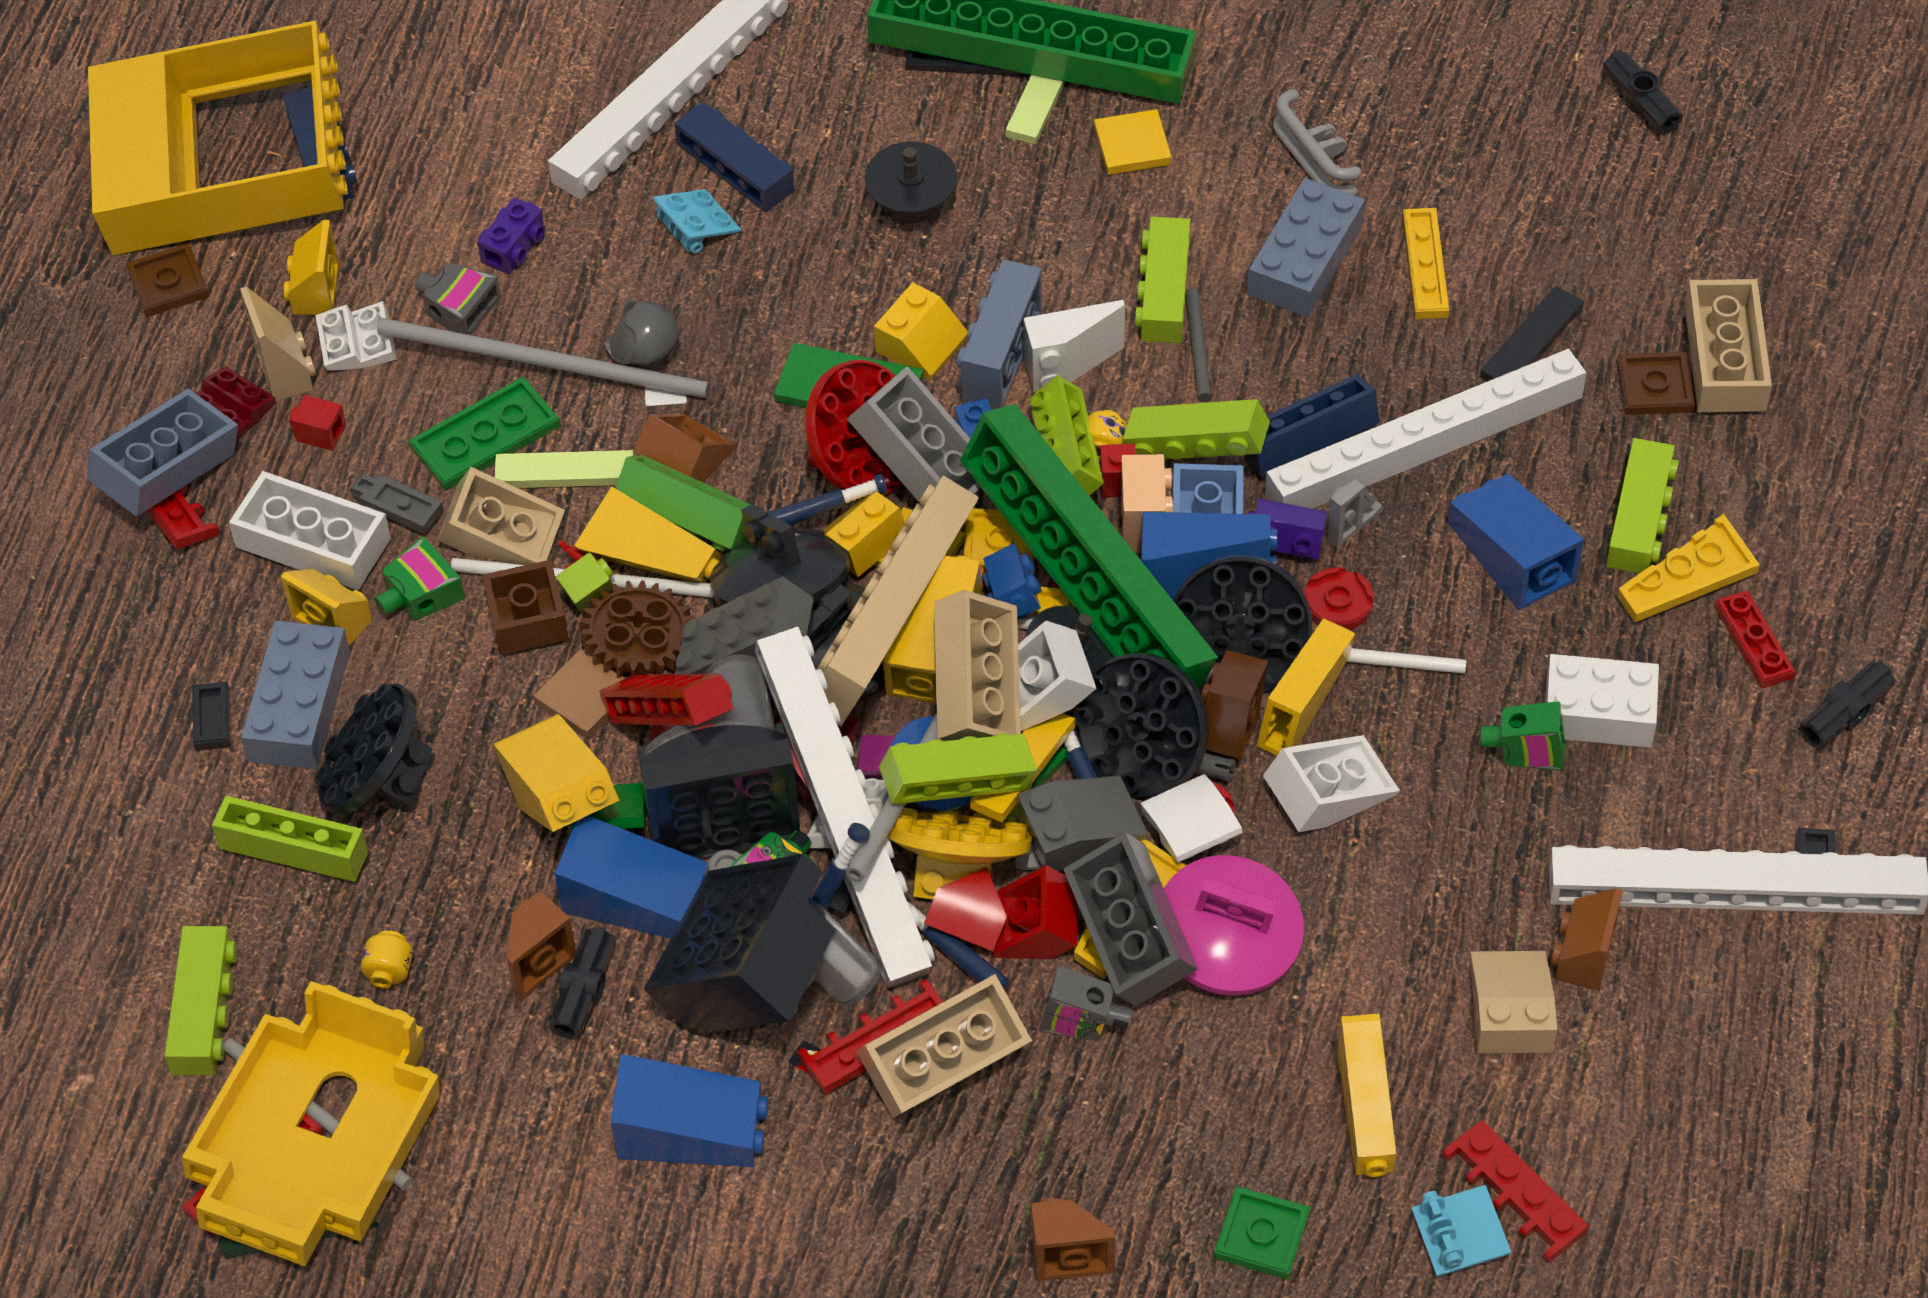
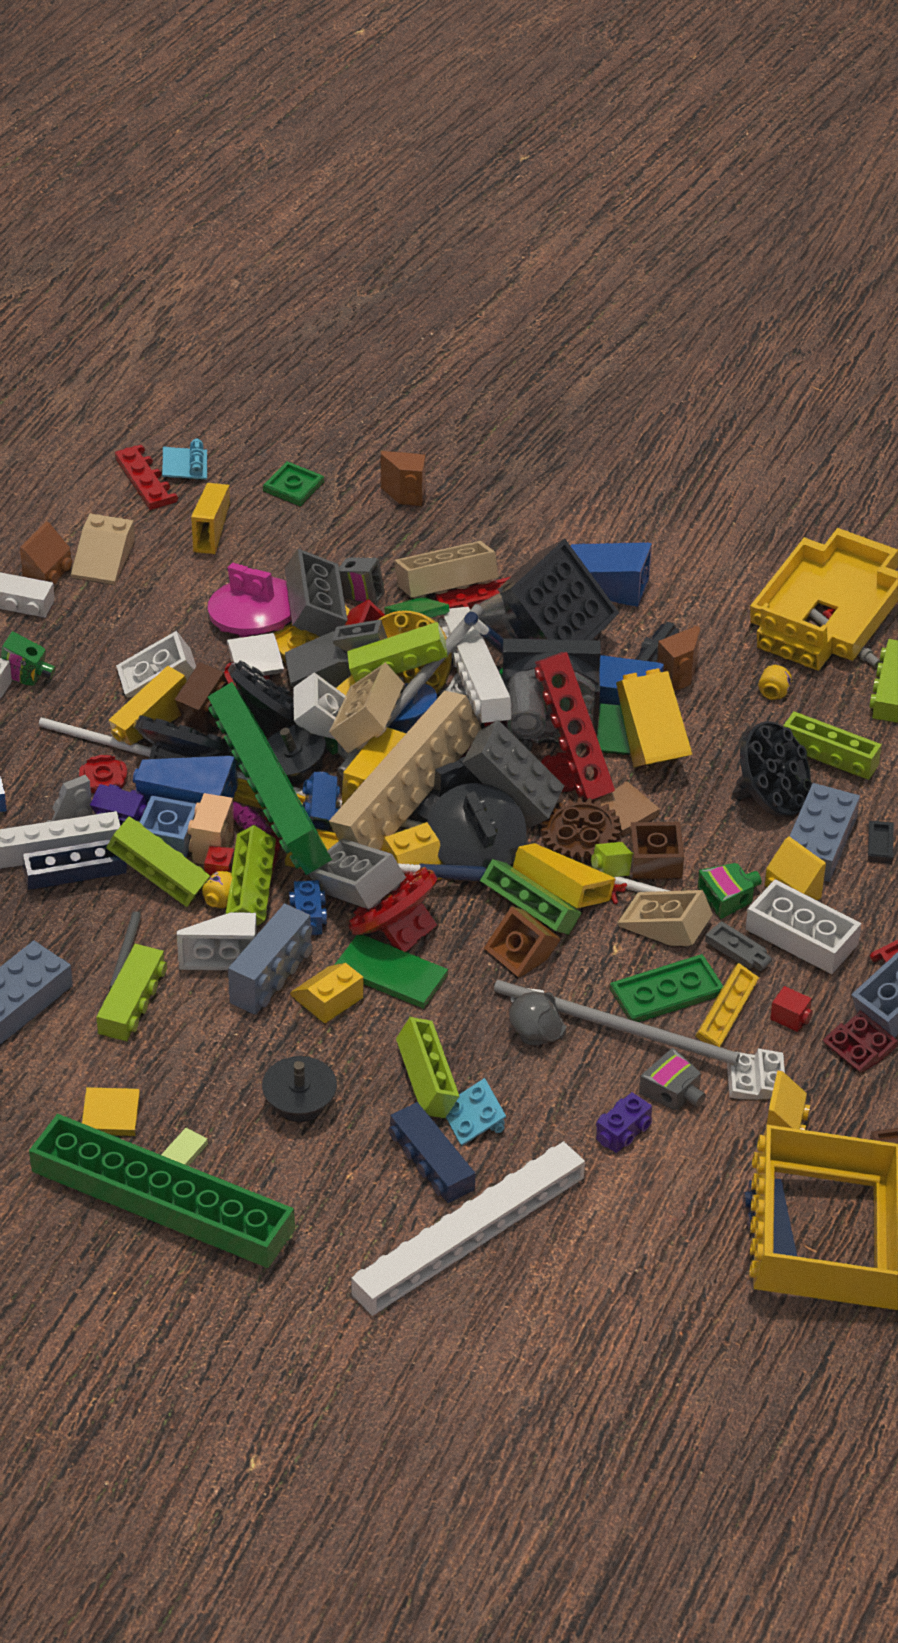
camera: 170 degrees left, 10 degrees down
(278, 348) = (818, 1047): tan slope -> none
(402, 416) = (727, 1006): none -> yellow tile
(561, 468) = (612, 951): yellowish green tile -> none
(764, 243) = (427, 1067): none -> lime brick
(967, 941) = (421, 605): none -> green tile
(1022, 800) = (358, 635): none -> dark grey slope

